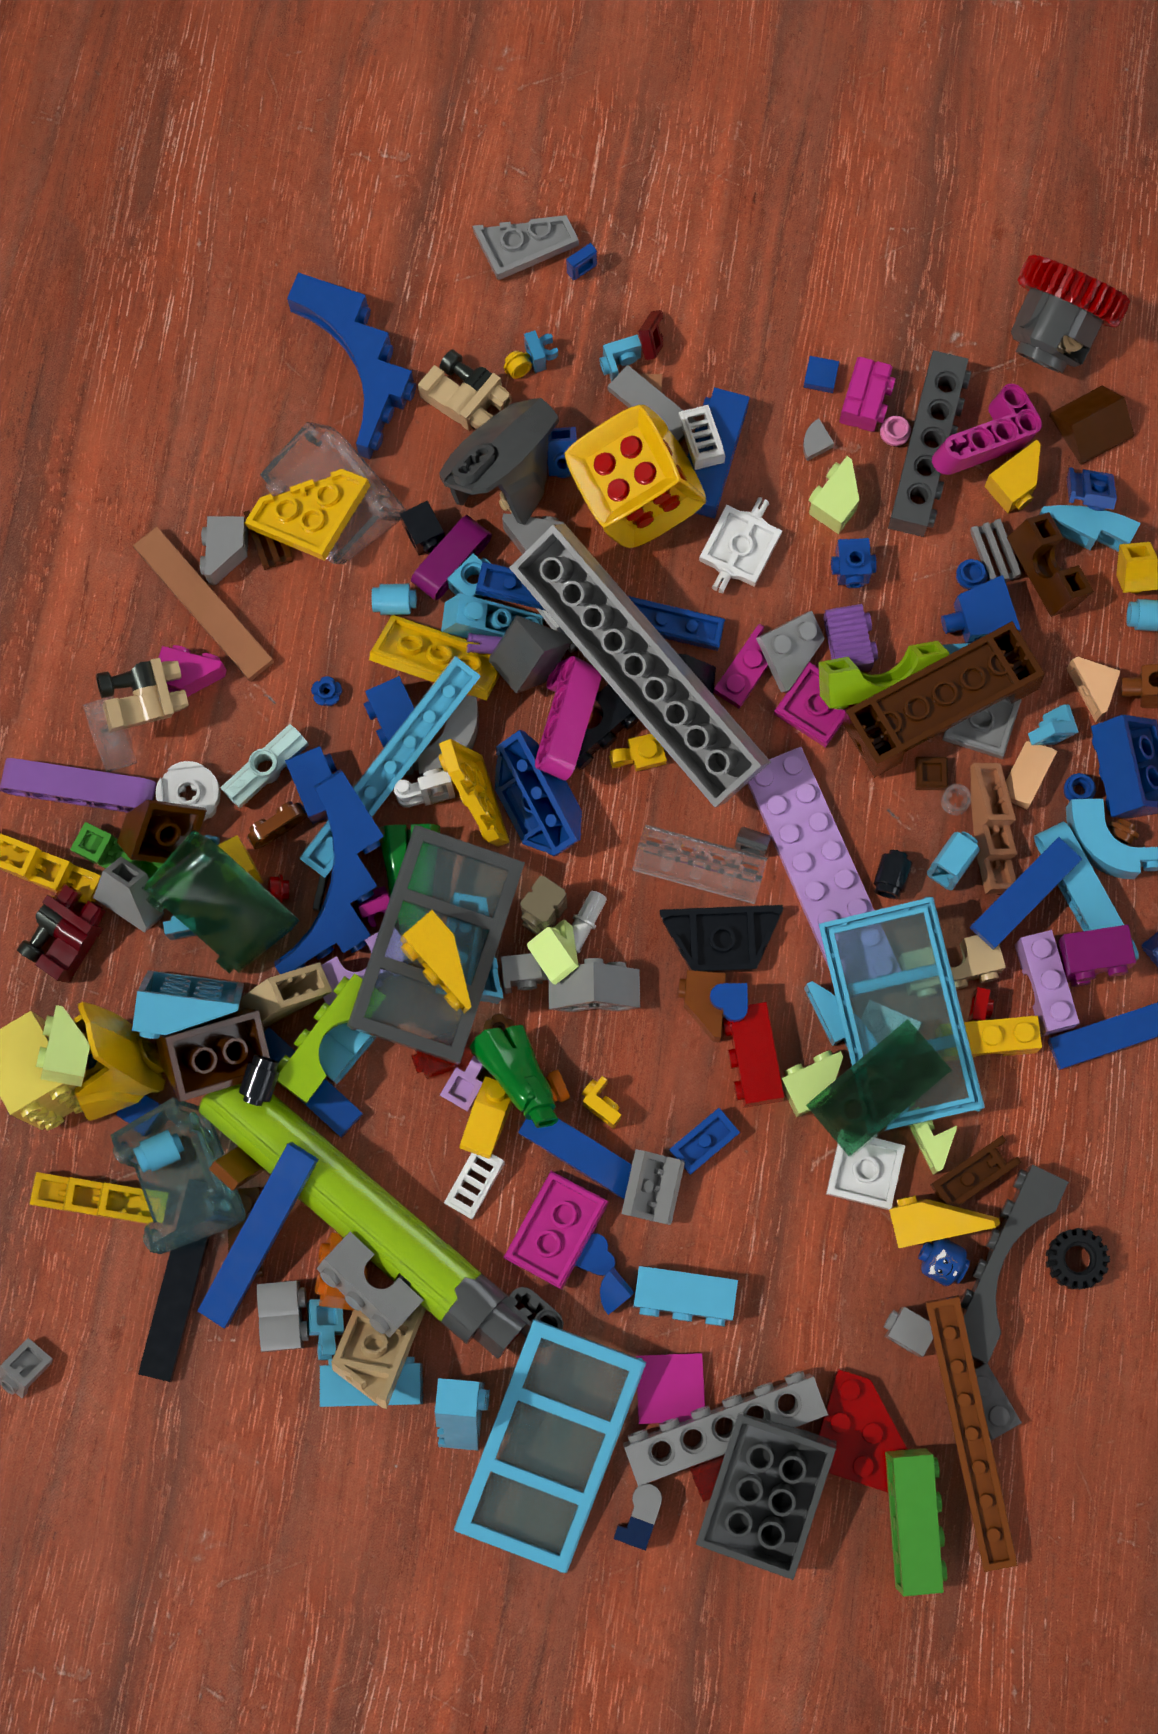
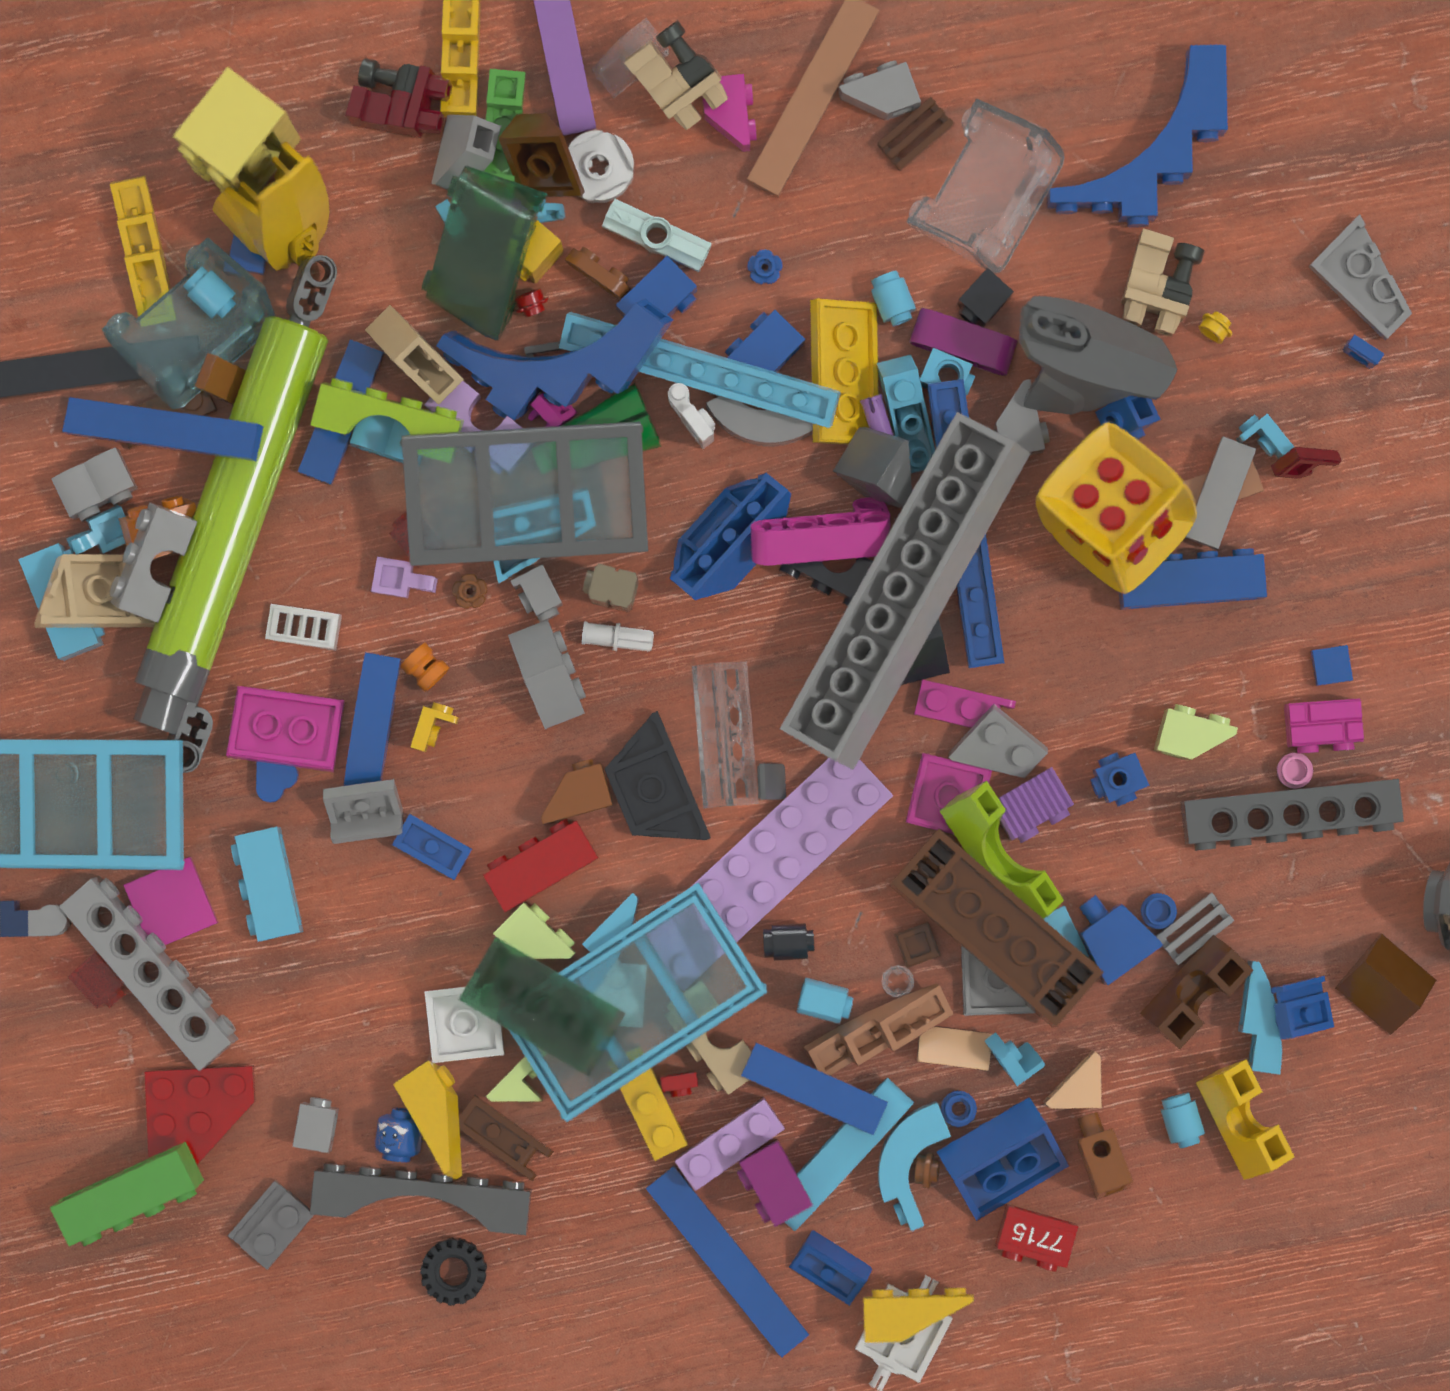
camera: 65 degrees right, 10 degrees up
(66, 1051) = (256, 165): yellowish green slope -> none
(181, 1001) = (365, 259): medium azure slope -> none
(211, 1053) = (324, 311): reddish brown slope -> none
(259, 1080) = (312, 369): black brick -> none
(310, 513) = (952, 171): yellow plate -> none
(437, 952) = (512, 498): yellow slope -> none
(460, 1412) = (68, 700): medium azure wedge -> none
(475, 789) = (712, 465): yellow plate -> none
(486, 1119) = (370, 615): yellow slope -> none
(514, 1065) = (430, 623): green piece -> none
(536, 350) = (1238, 342): dark azure tile -> none
(555, 951) = (568, 619): yellowish green slope -> none
(614, 1291) = (245, 811): blue tile -> none
(643, 752) = (821, 625): yellow plate -> none
(706, 458) = (1174, 578): white slope -> none
(731, 999) = (584, 820): blue tile -> none
(740, 545) = (1096, 649): white plate -> none
(766, 1494) = (97, 1037): dark grey slope -> none
(816, 440) = (1251, 687): light grey tile -> none
(971, 1433) = (235, 1220): dark orange plate -> none
(1012, 428) = (1314, 872): dark pink beam -> none
(1016, 479) = (1285, 922): yellow slope -> none

